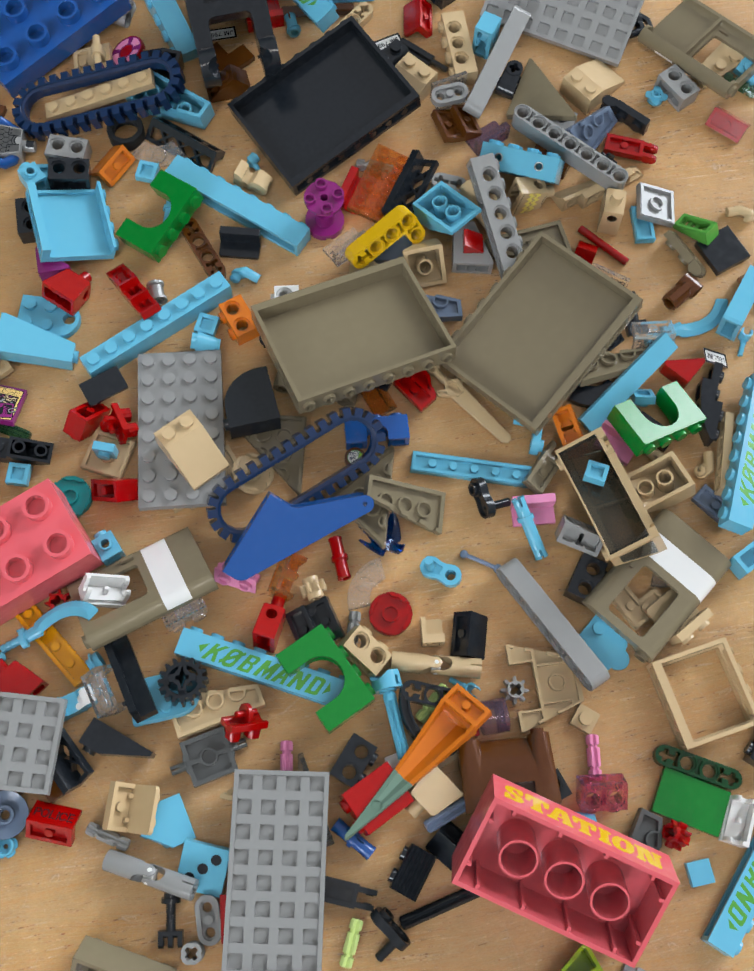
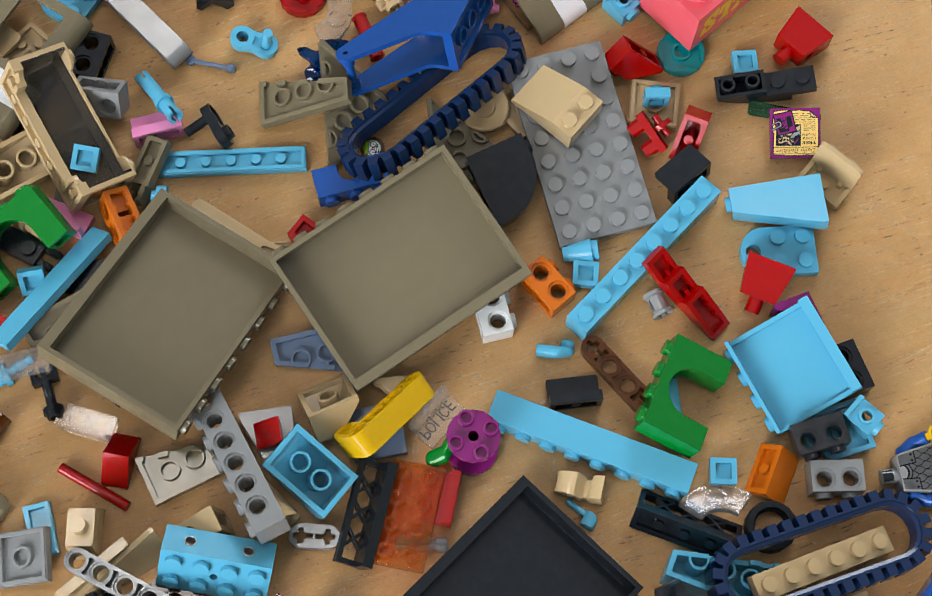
camera: 170 degrees right, 0 degrees up
(347, 216) = (439, 455): none -> green arm

